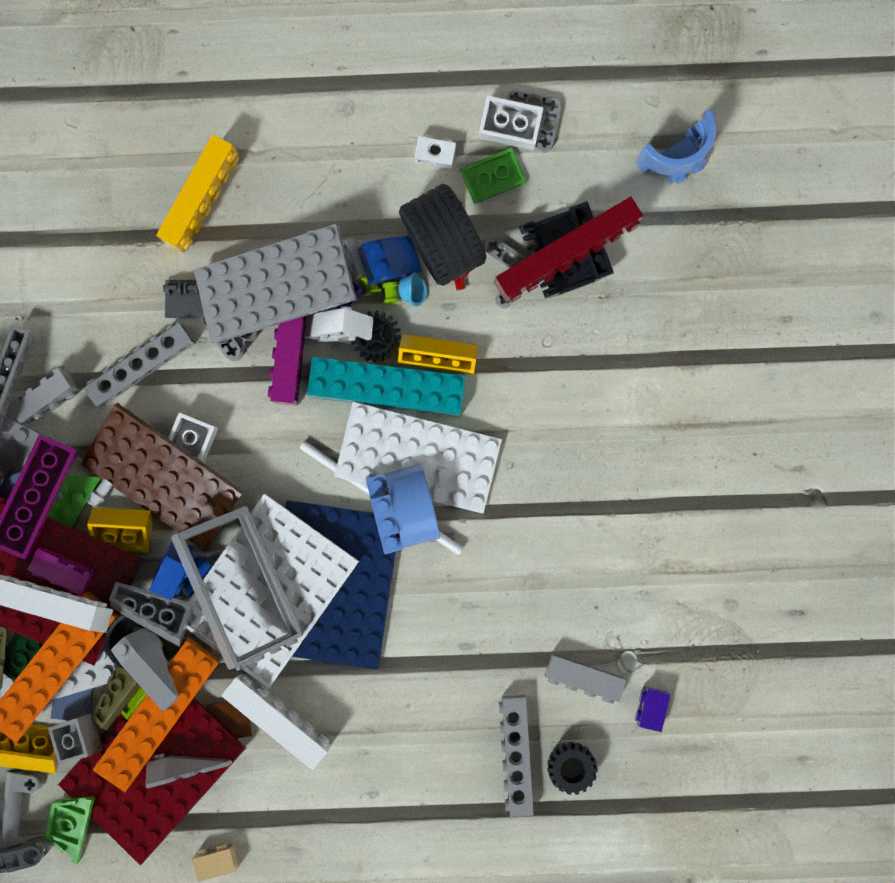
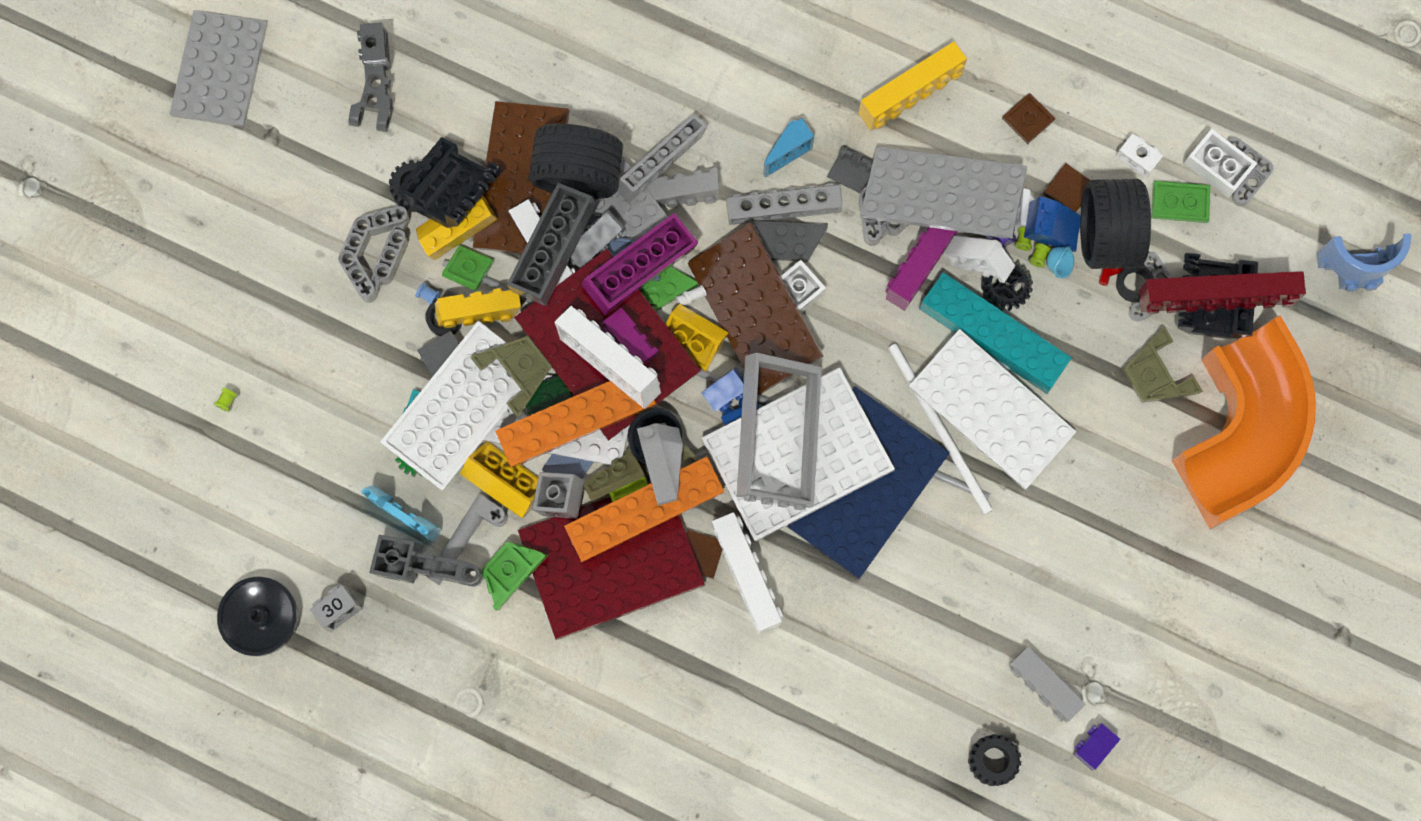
camera: 25 degrees right, 10 degrees down
(114, 310) = (792, 144): none -> dark azure slope
(152, 611) = (690, 416): light grey wedge -> none
(162, 394) = (790, 240): none -> dark grey wing
(169, 768) = (633, 565): light grey wedge -> none
(215, 862) = (621, 673): tan brick -> none
(319, 167) = (1028, 118): none -> reddish brown tile
(385, 215) = (1067, 187): none -> reddish brown tile
(404, 510) = (961, 441): medium blue piece -> none
(437, 353) = (1056, 327): yellow brick -> none
(474, 277) = (1123, 292): none -> black tyre
(523, 805) = (973, 678): light grey brick -> none
(543, 353) = (1150, 376): none -> olive wing
(664, 352) = (1265, 427): none -> orange piece

